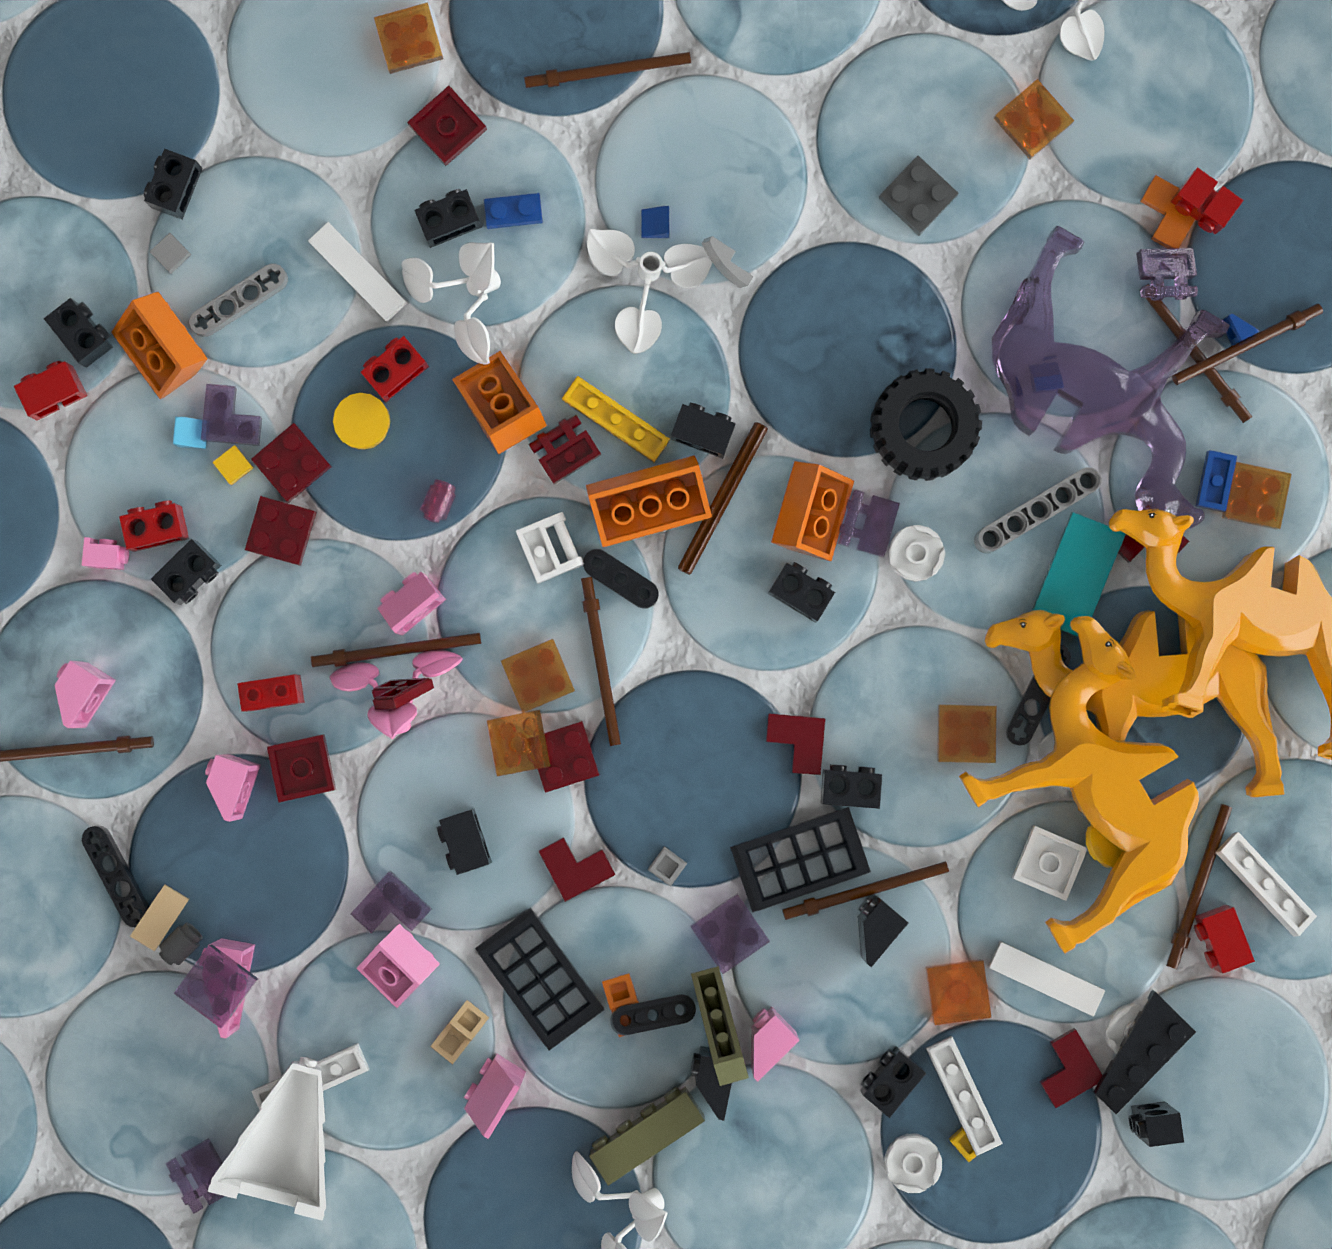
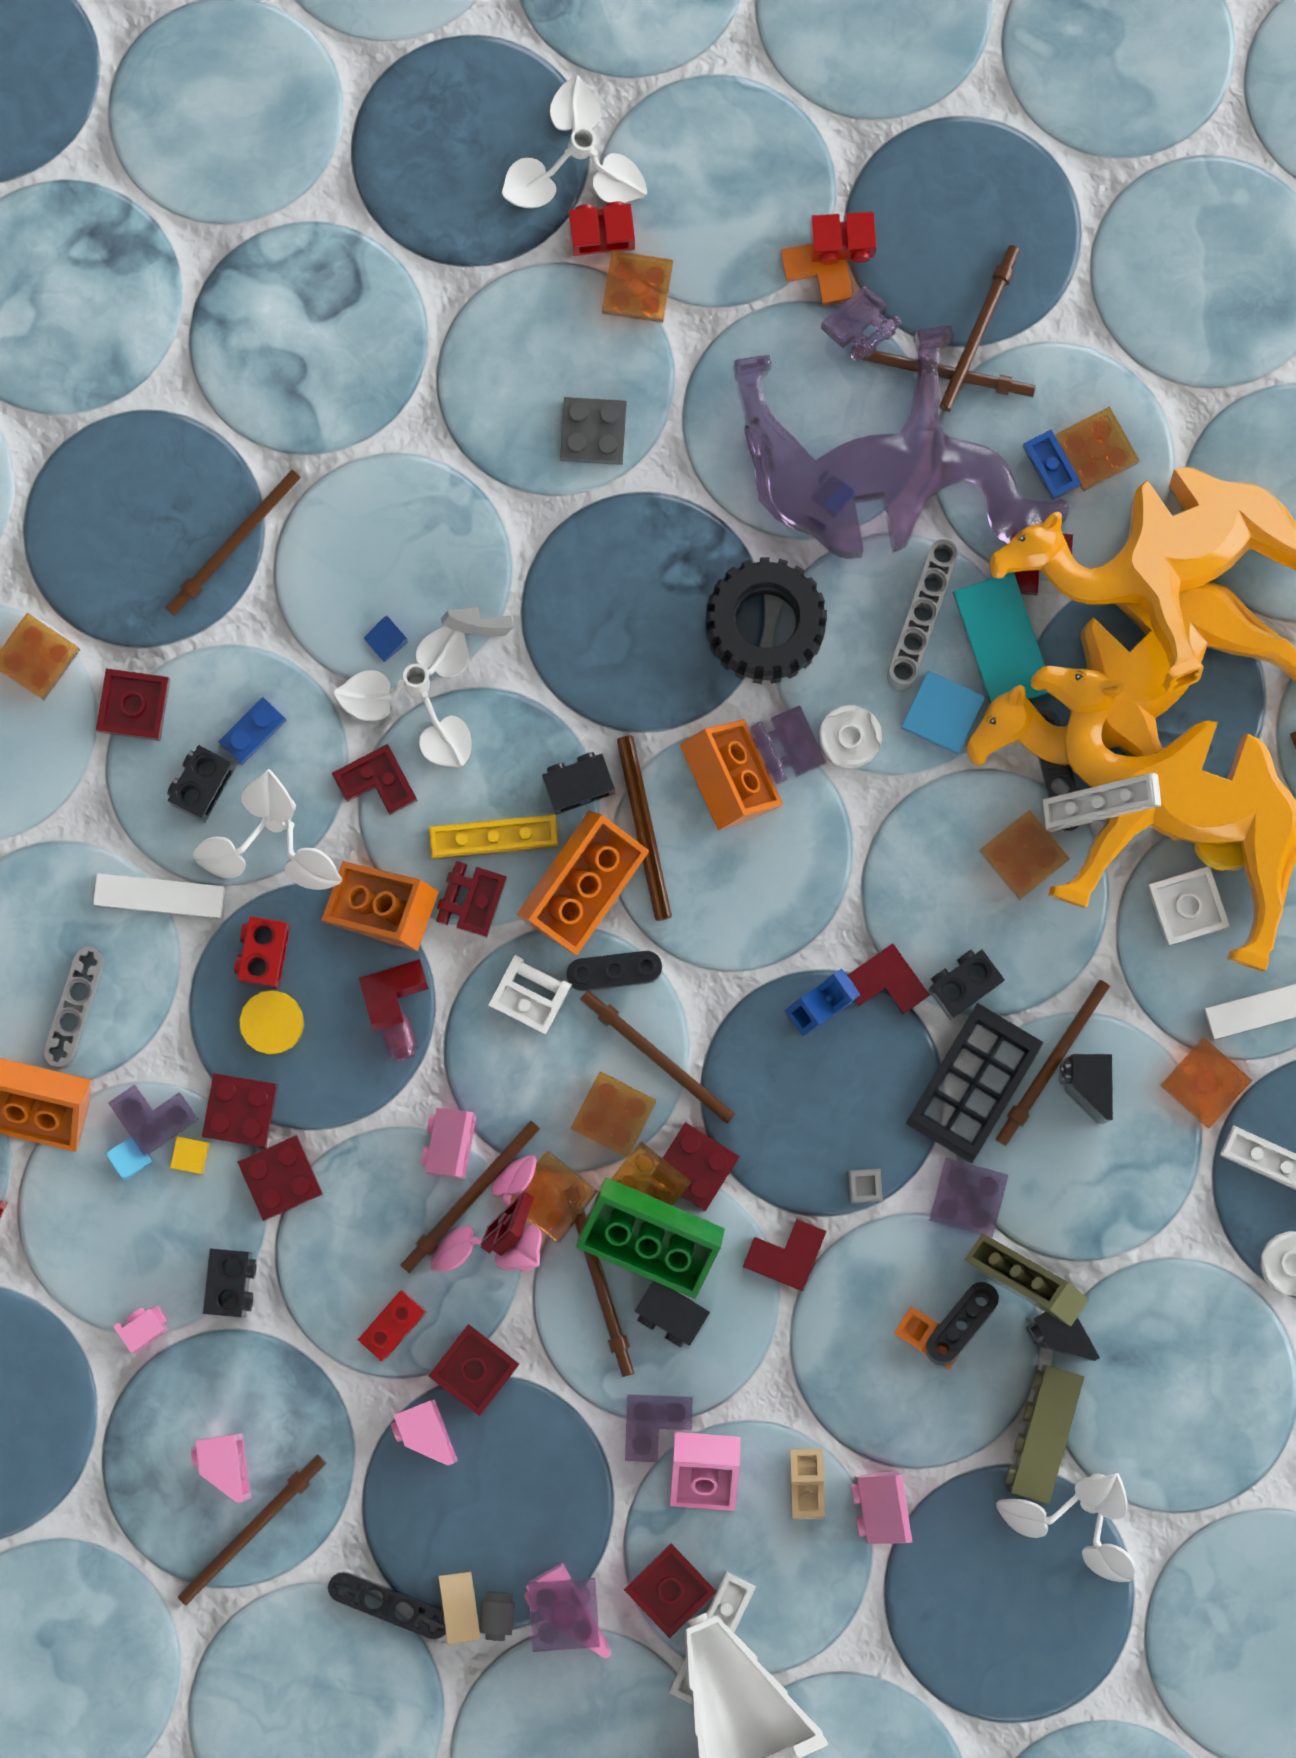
camera: 40 degrees left, 5 degrees down
(154, 532) = (172, 1272): red brick -> none
(308, 1025) = (670, 1590): none -> dark red plate
(412, 831) = (618, 1342): none -> reddish brown bar
(453, 699) = (558, 1196): none -> clear orange plate
(454, 462) = (384, 989): none -> dark red tile
(490, 781) = (650, 1238): none -> green brick
(539, 979) = (837, 1377): black piece -> none
(575, 310) = (380, 772): none -> dark red tile
(742, 719) = (822, 1002): none -> blue brick
(769, 1041) = (1080, 1259): bright pink slope -> none
(798, 598) = (783, 860): black brick -> none
(899, 1085) = (1224, 1207): black brick -> none
(994, 589) = (943, 712): none -> dark azure tile
(1043, 58) = (602, 229): none -> red piece
(1051, 744) = (1102, 802): none -> white tile
(1239, 329) = (961, 321): blue slope -> none

